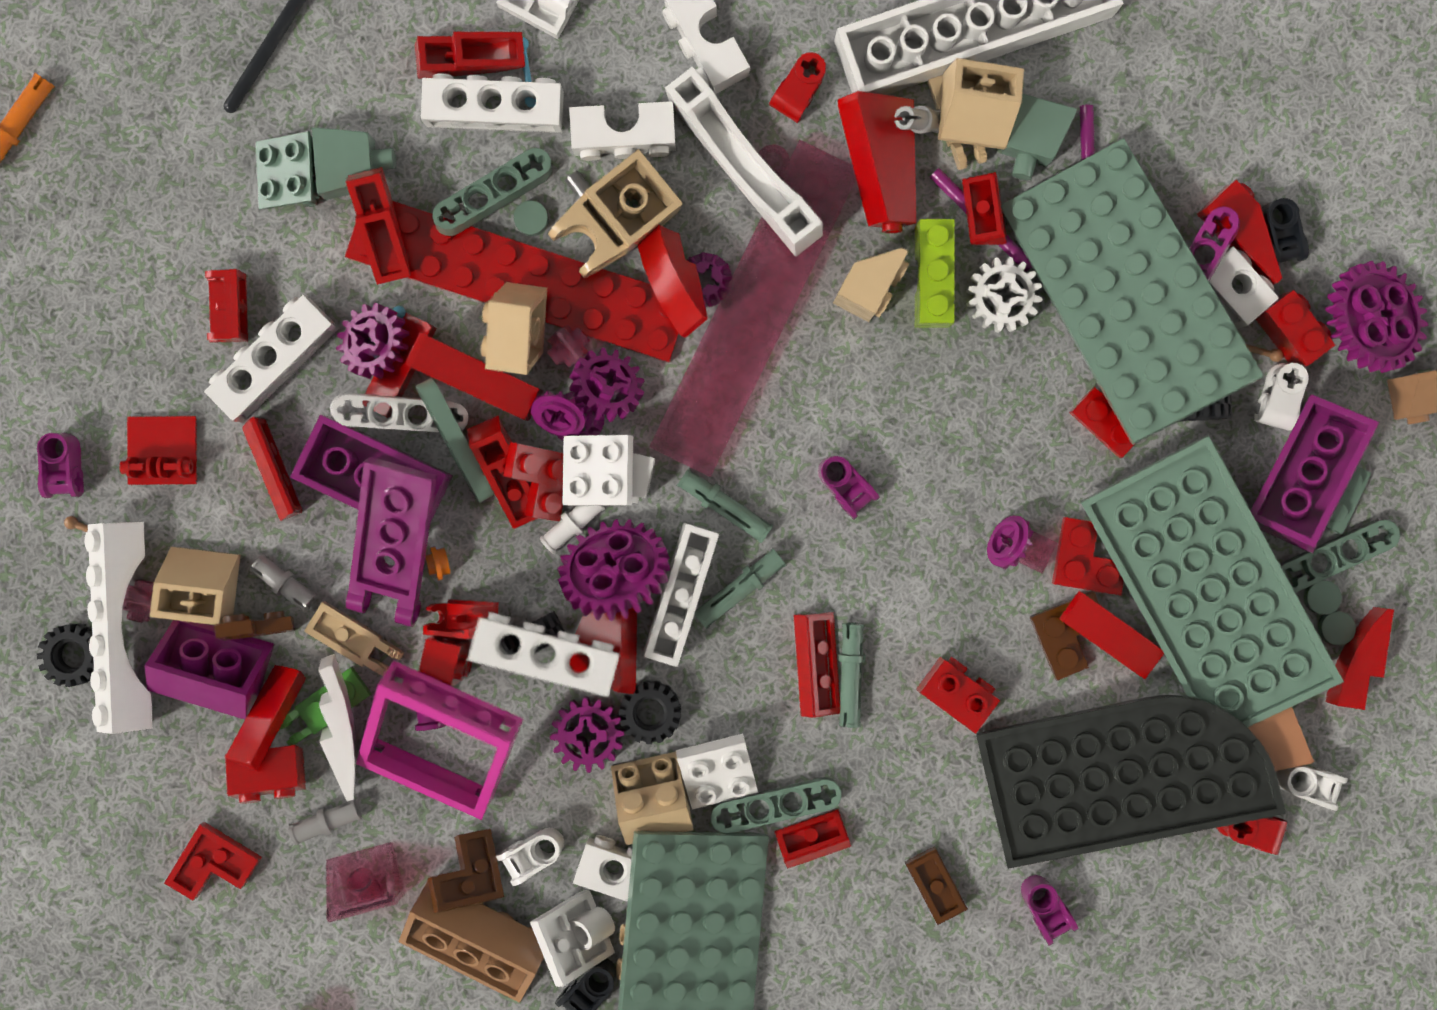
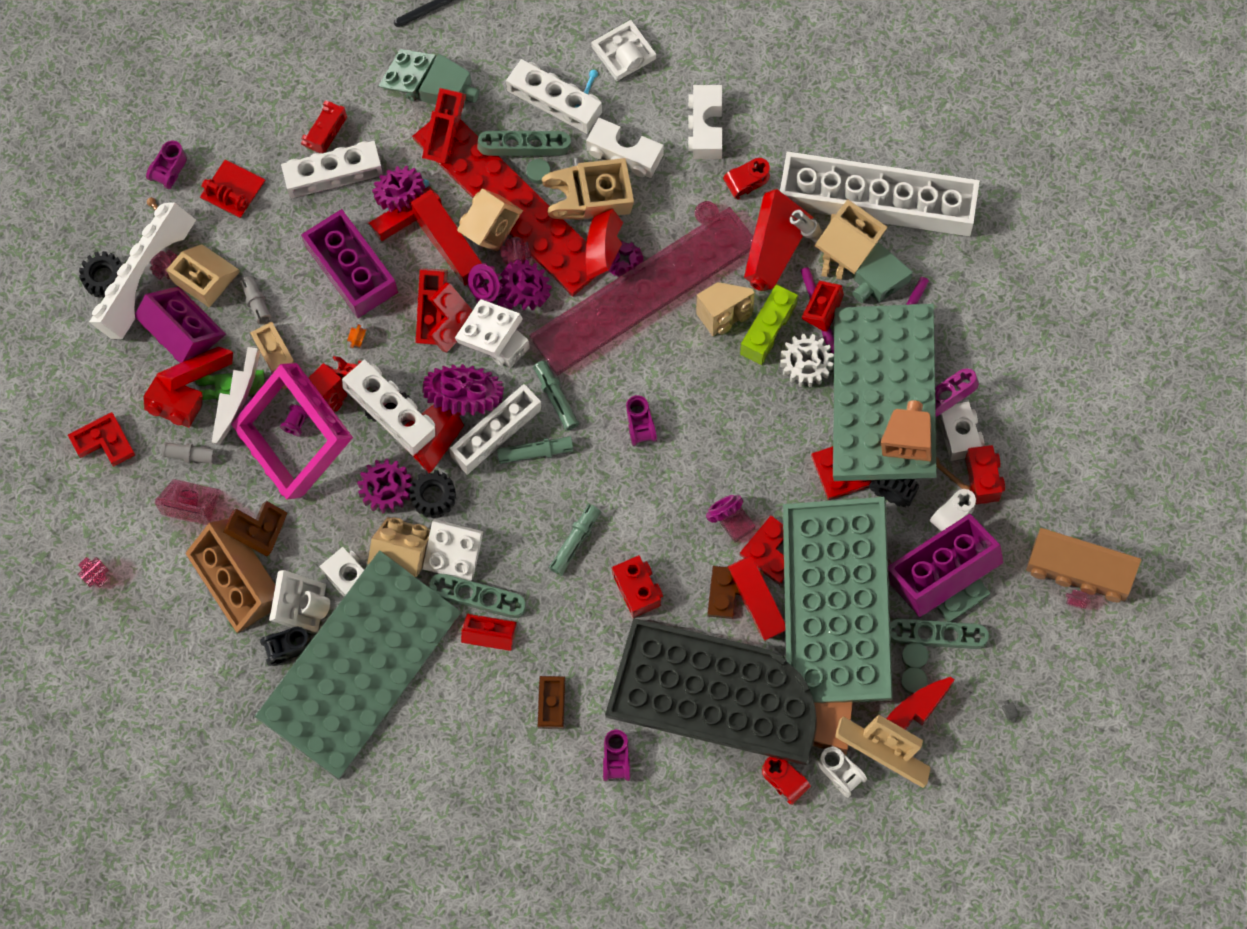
camera: 35 degrees right, 20 degrees down
(241, 626) = (214, 307): reddish brown plate -> none
(272, 468) = (291, 231): red slope -> none
(395, 524) = (343, 292): magenta hinge -> none
(399, 417) = (391, 232): white beam -> none
(454, 440) = (412, 268): sand green beam -> none
(469, 53) = (559, 61): red slope -> none
(527, 858) = (298, 541): white piece -> none
(568, 526) = (453, 356): white pin -> none
(770, 195) = (685, 200): white arch -> none
(813, 664) = (555, 522): red slope -> none
(1210, 343) = (908, 434): none -> nougat torso
(1252, 234) = (985, 398): red slope -> none
(1288, 233) = (1008, 417): black piece -> none
(1356, 737) = (887, 745): none -> tan bracket
(1376, 317) = (1060, 502): magenta gear -> none

